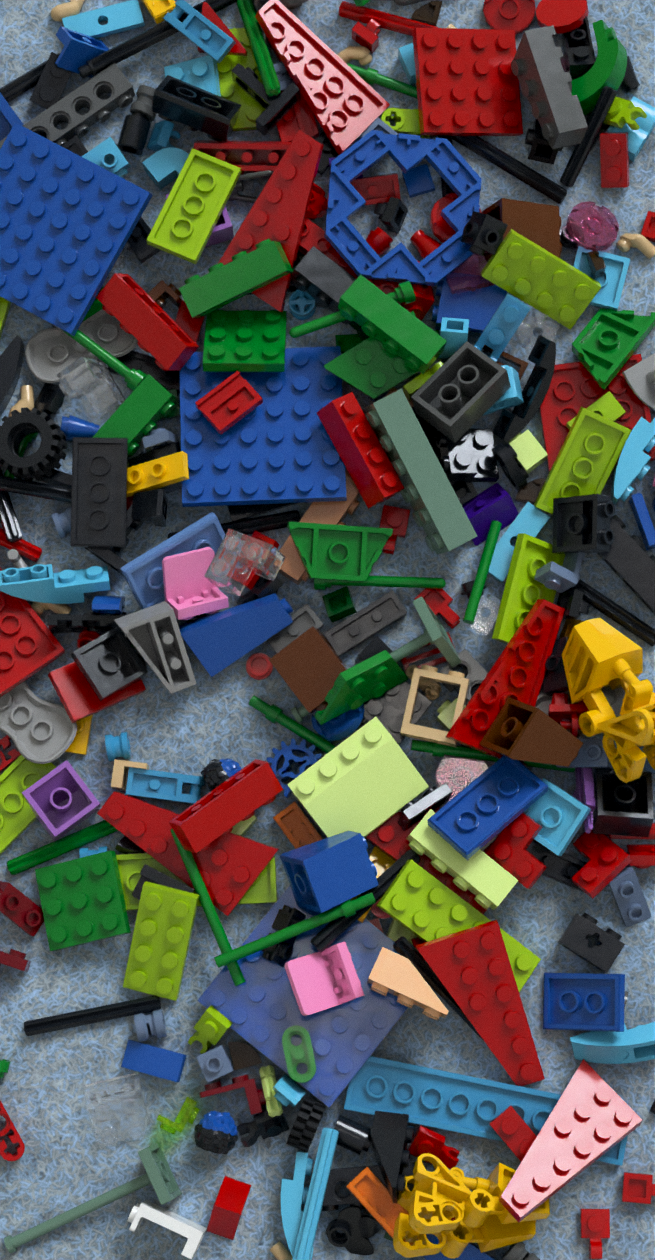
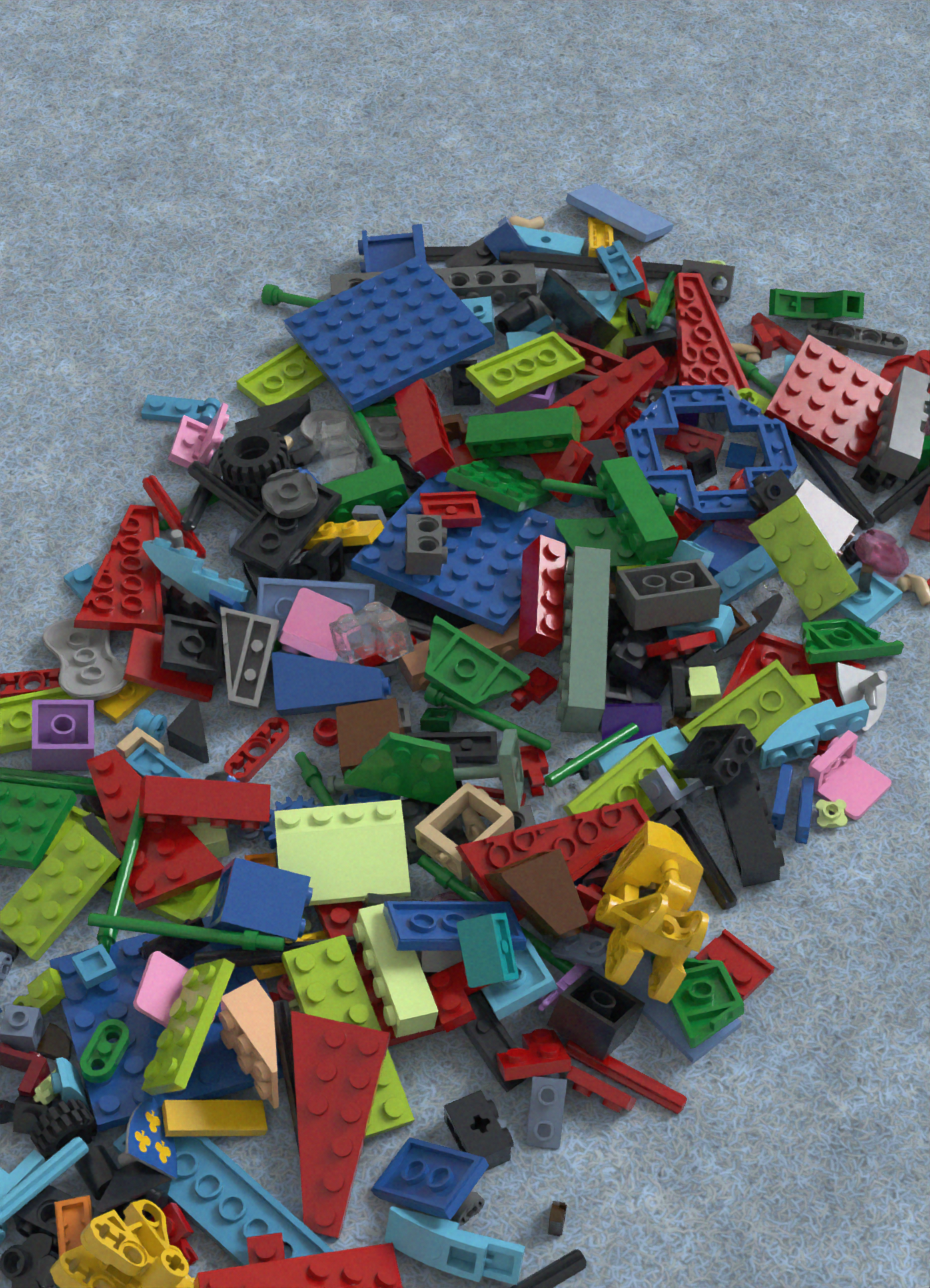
camera: 25 degrees right, 30 degrees down
(85, 464) = (289, 493): none -> dark grey tile
(155, 735) = (188, 734): none -> black slope
(210, 695) = (258, 739): none -> red beam
(231, 460) = (424, 545): none -> dark grey brick
(244, 995) = (94, 966): none -> dark azure tile
(299, 298) = (571, 467): none -> red plate
(354, 1008) = (187, 1027): none -> lime plate
(377, 1097) = (147, 1140): none -> blue shield
(402, 1047) = (214, 1118): none -> yellow tile
(494, 429) = (684, 645): none -> red plate
(531, 818) = (487, 950): none -> teal panel

